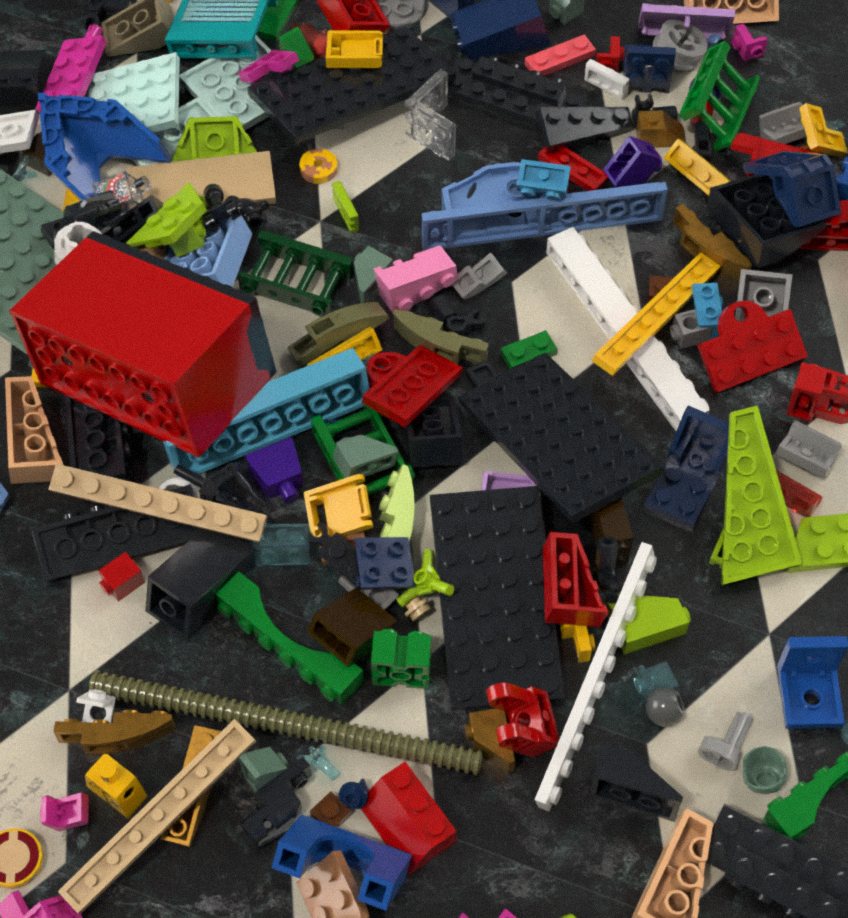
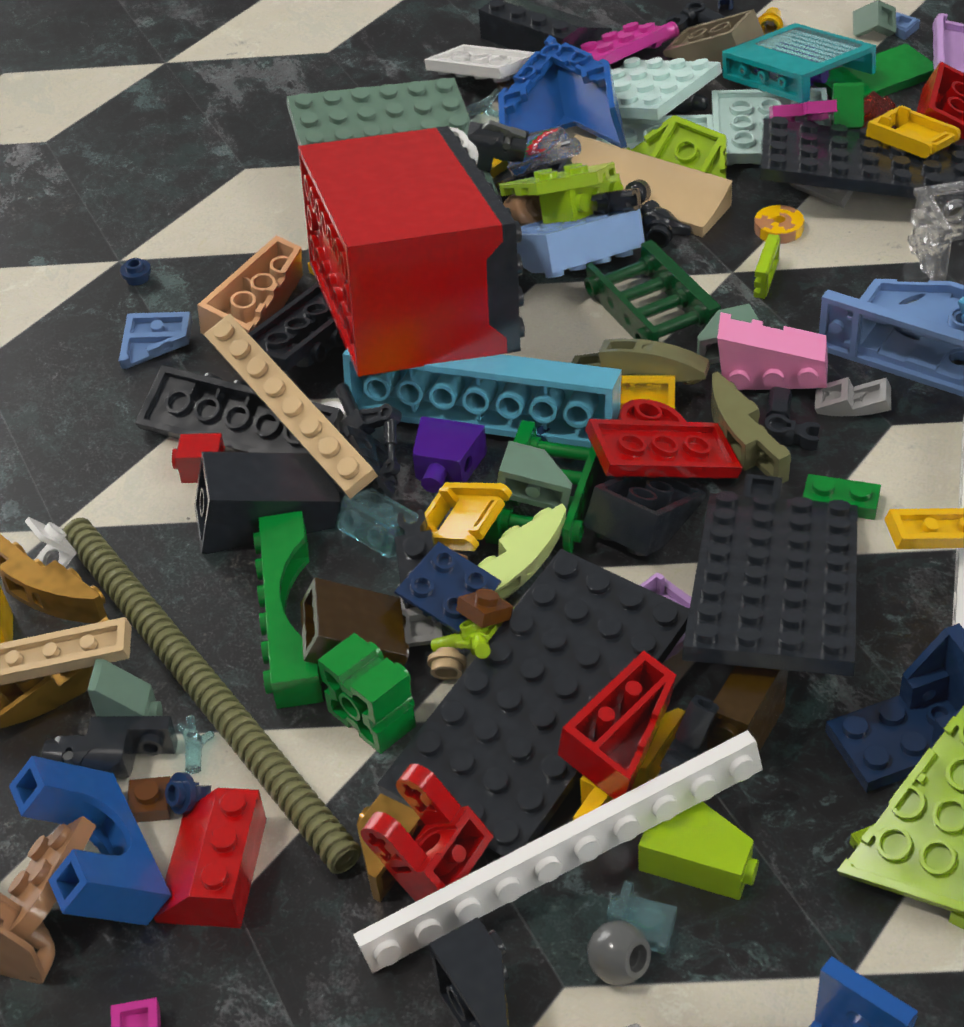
camera: 45 degrees right, 15 degrees down
(423, 562) = (484, 607): none -> reddish brown plate

